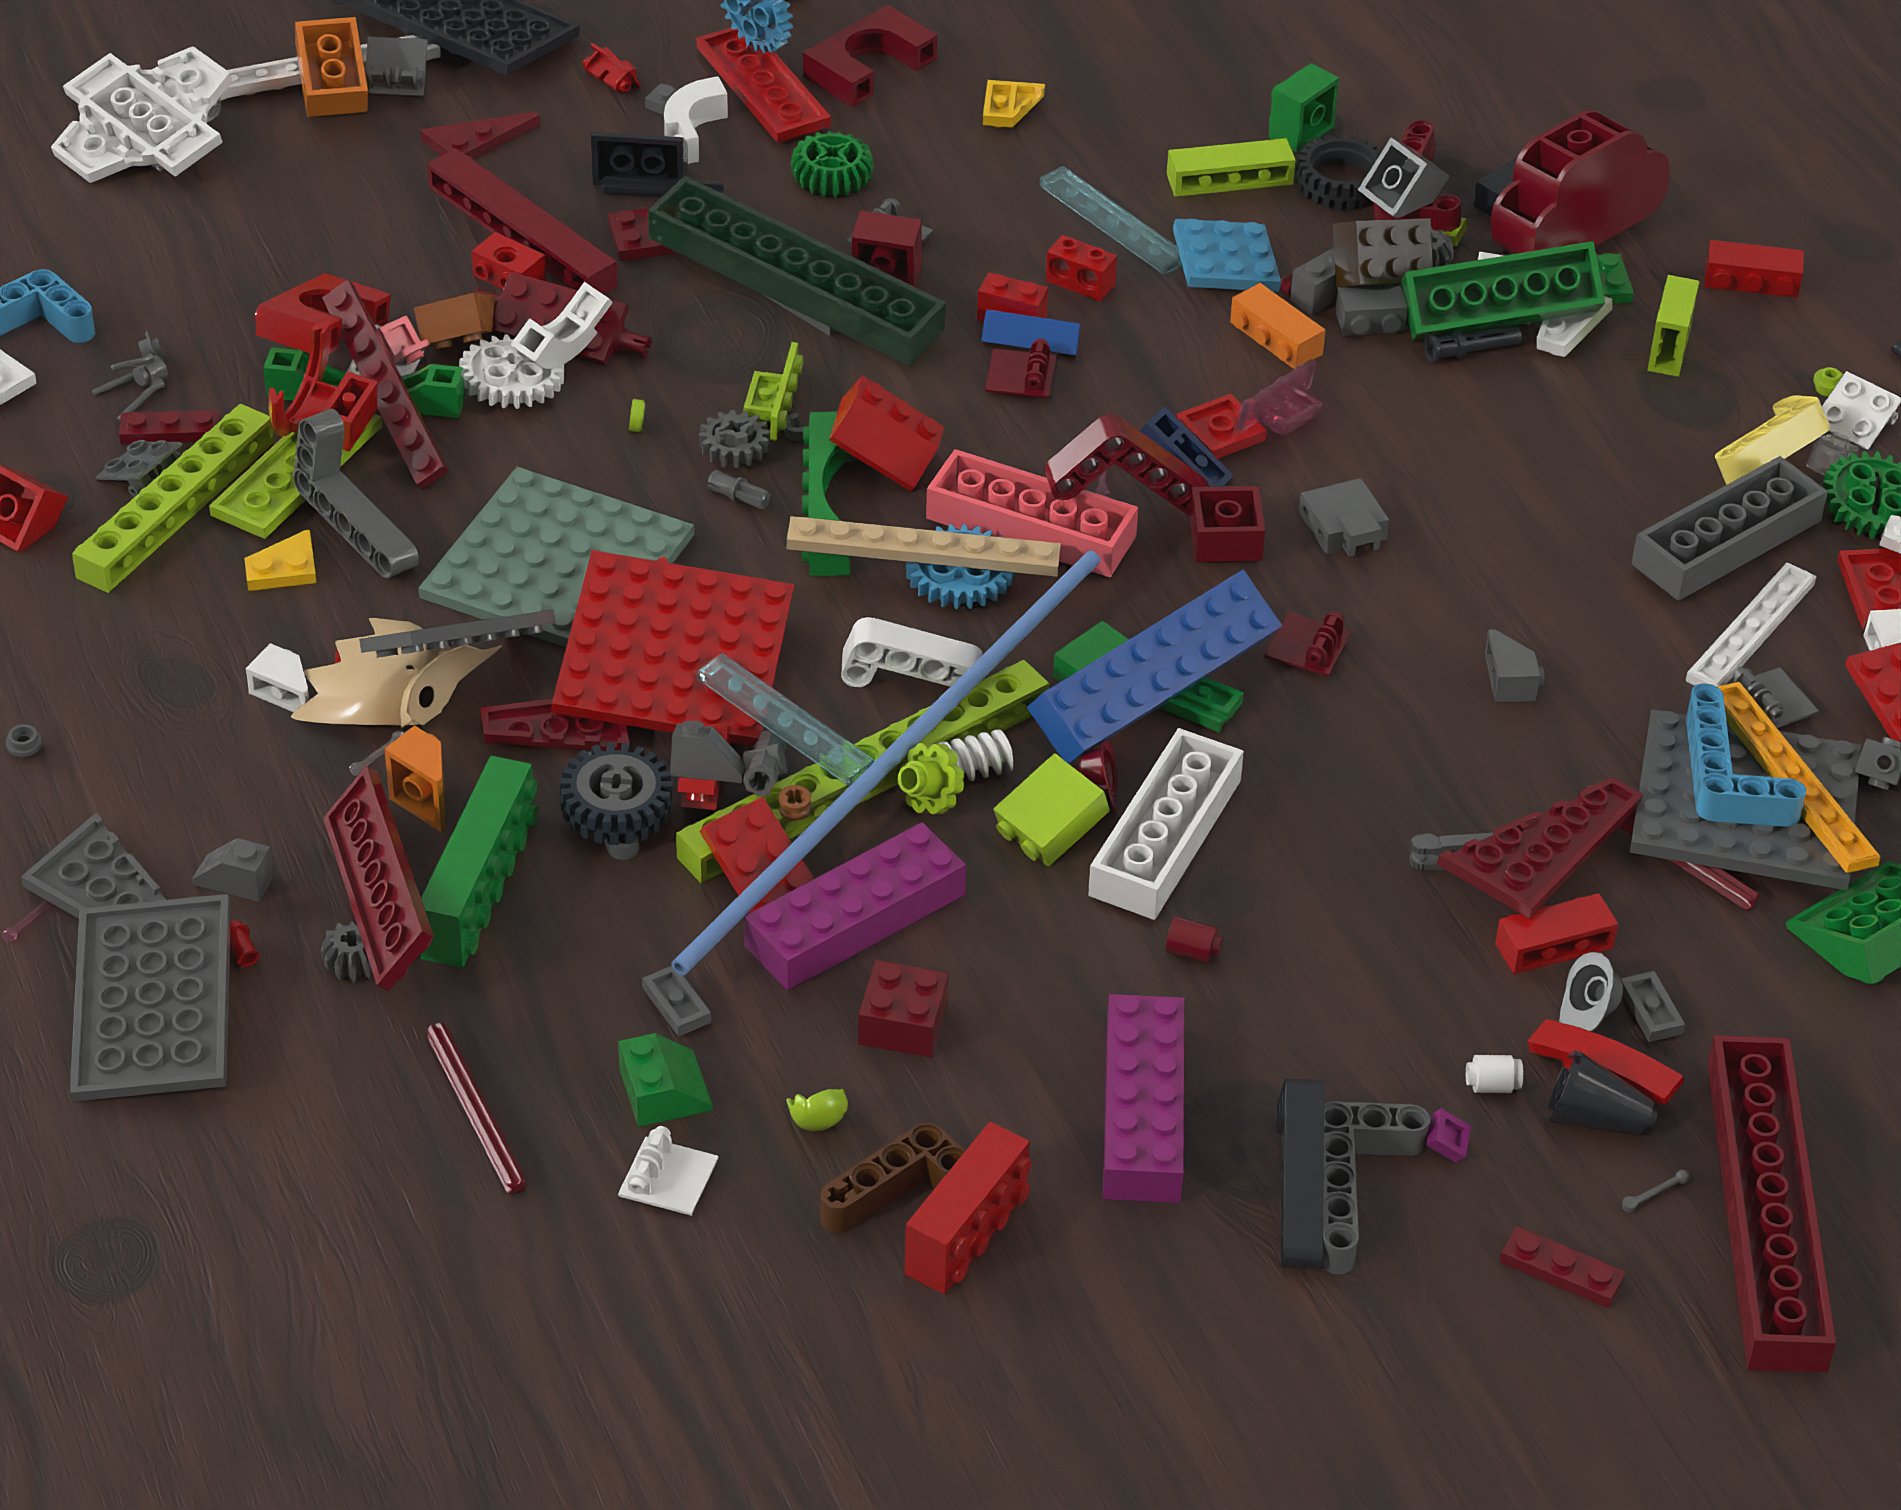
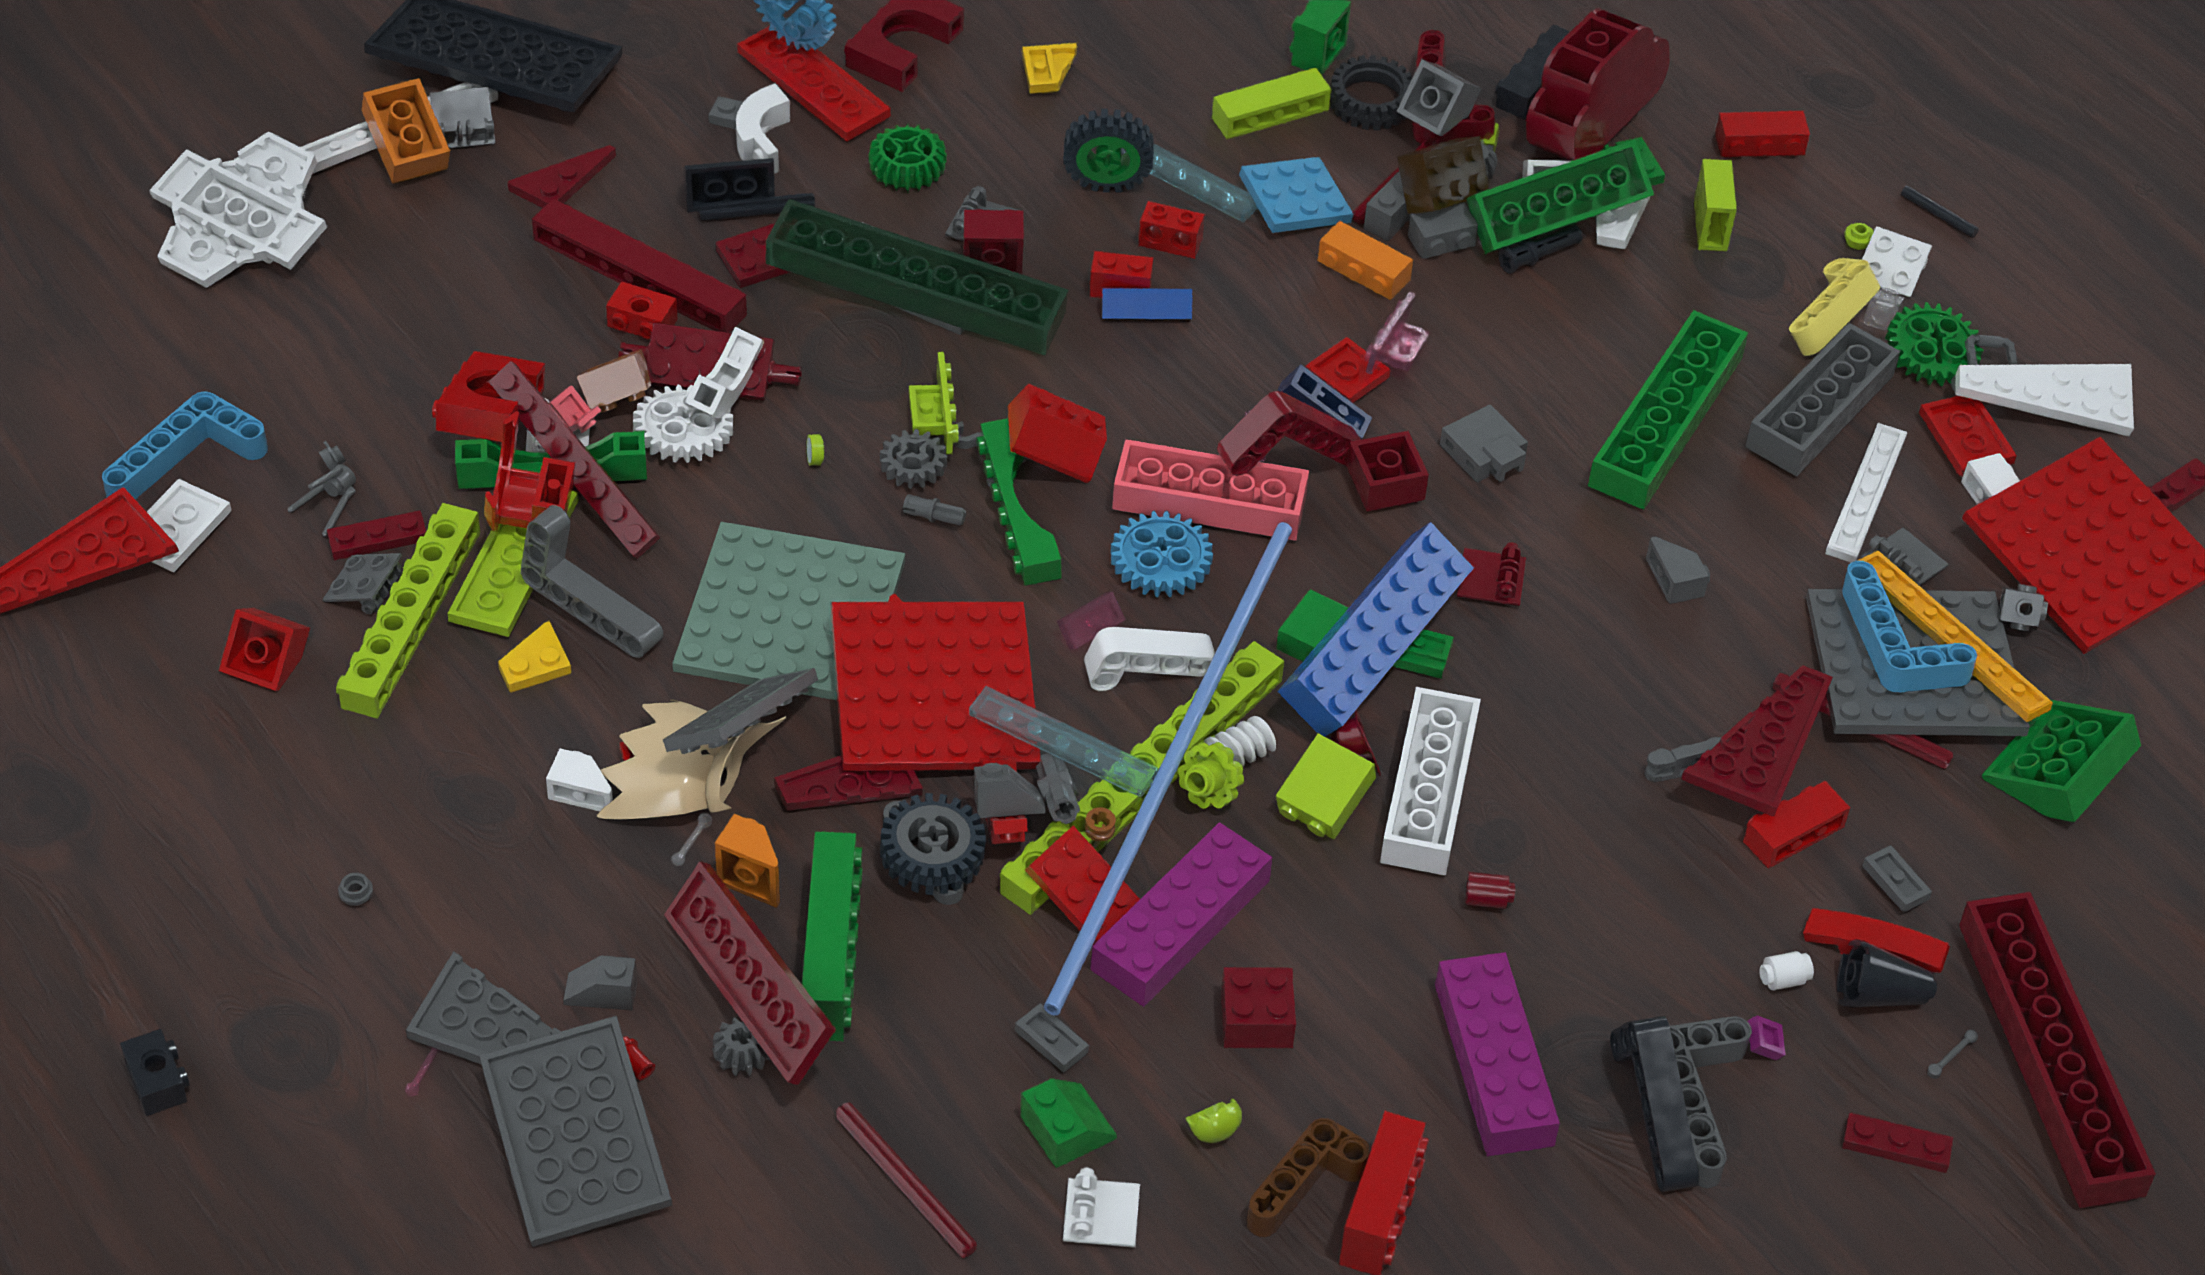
camera: 15 degrees left, 5 degrees up
(620, 74) = (677, 91): red hinge -> none
(844, 616) = (1089, 619): none -> clear pink plate
(923, 546) = (1128, 543): tan plate -> none
(1022, 371) = (1150, 344): dark red hinge -> none
(1041, 165) = (1109, 136): none -> black wheel
(1553, 512) = (1667, 410): none -> green brick
(1590, 992) = (1844, 877): piece -> none

